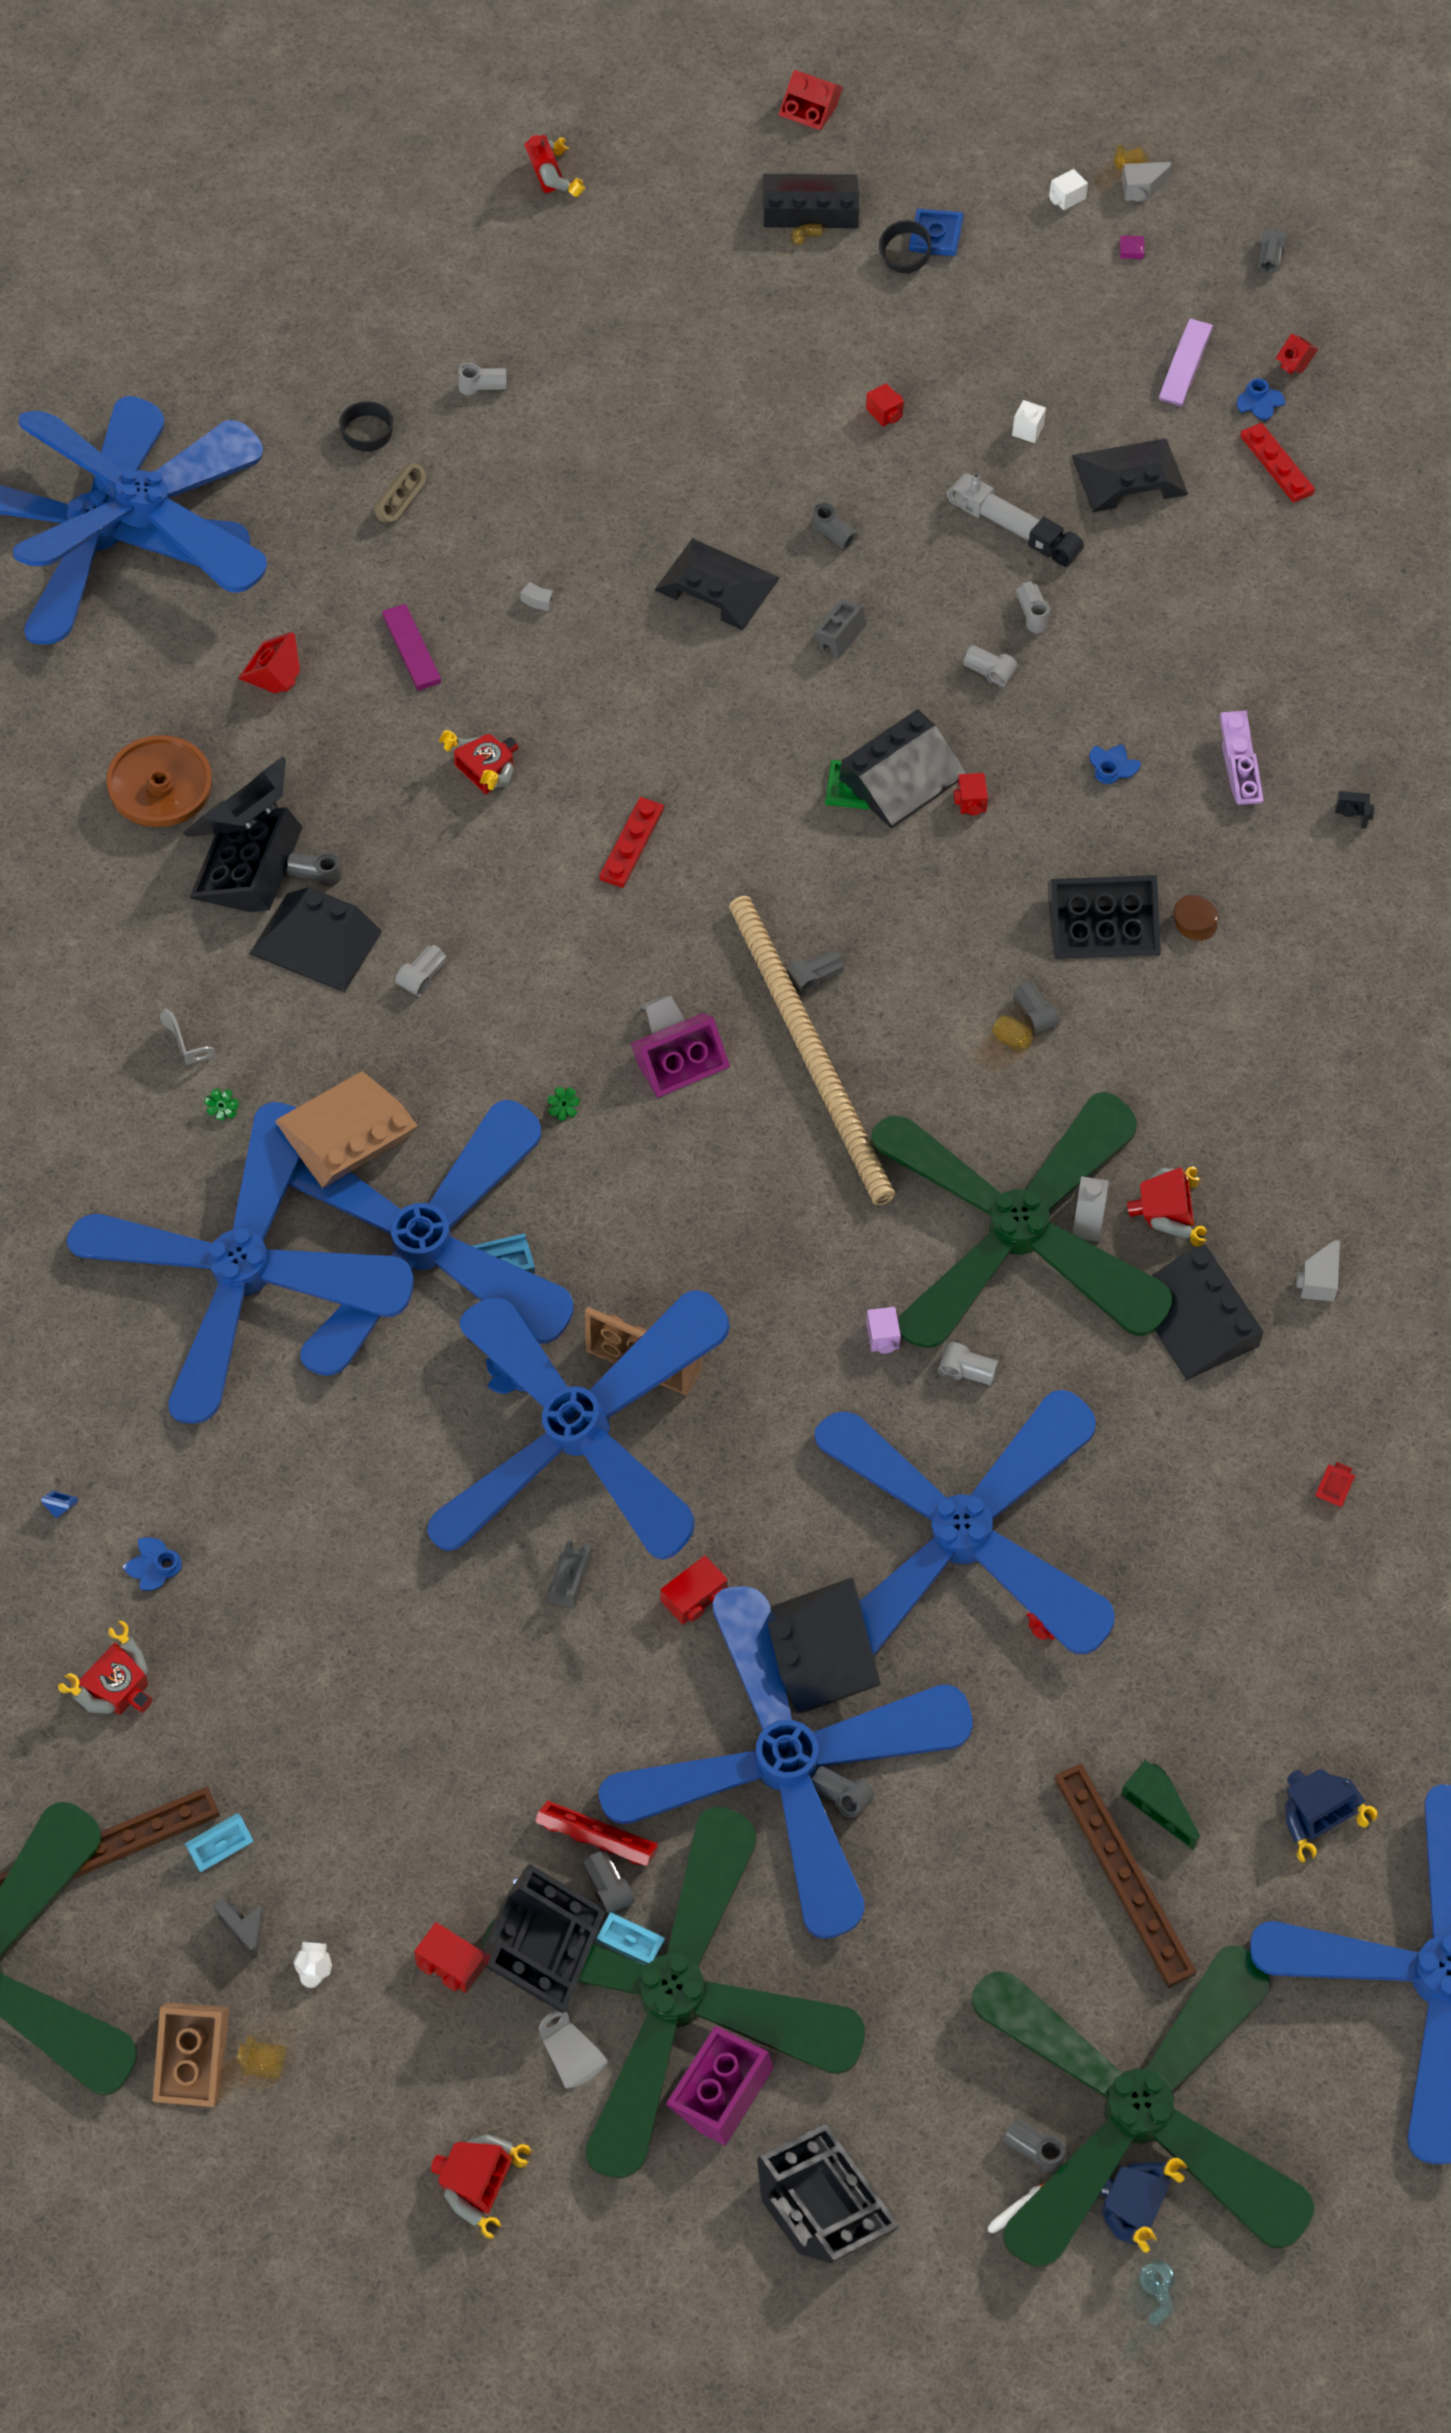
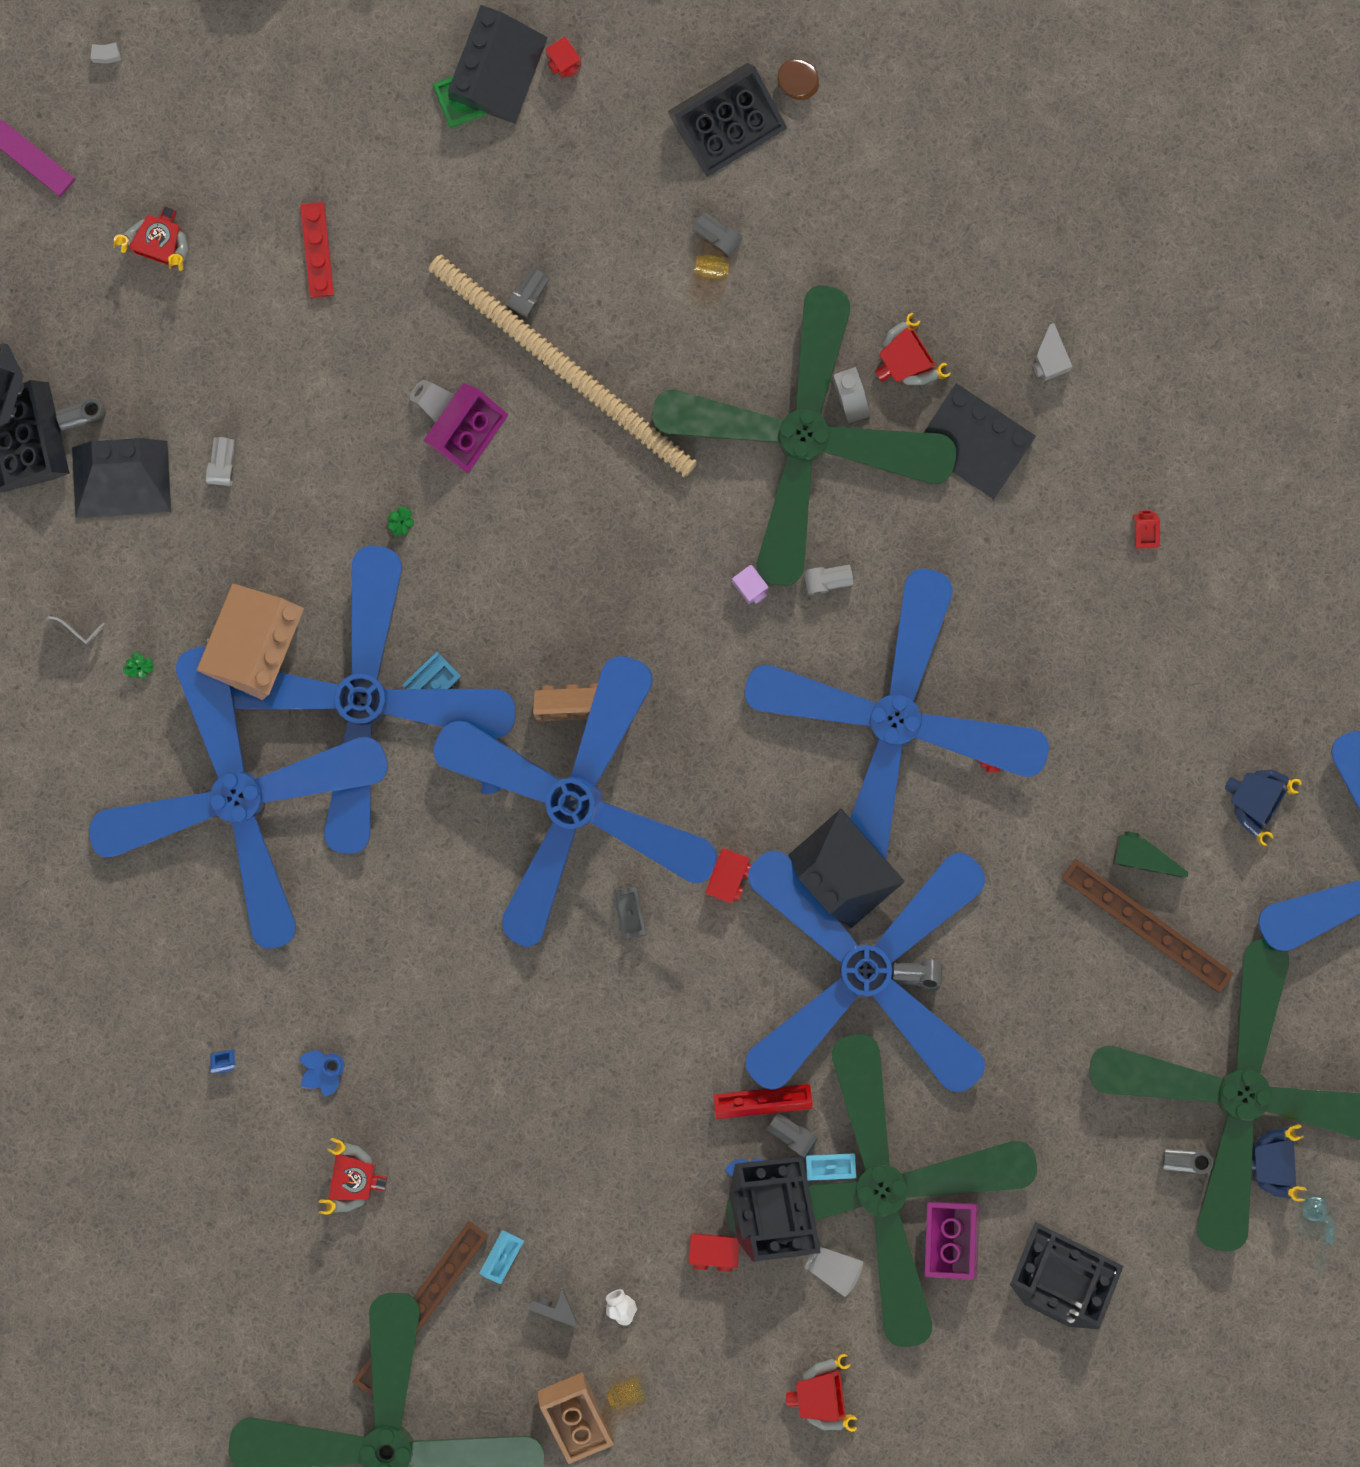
camera: 25 degrees left, 25 degrees up
(1002, 2219) = (1195, 1211): white piece -> none

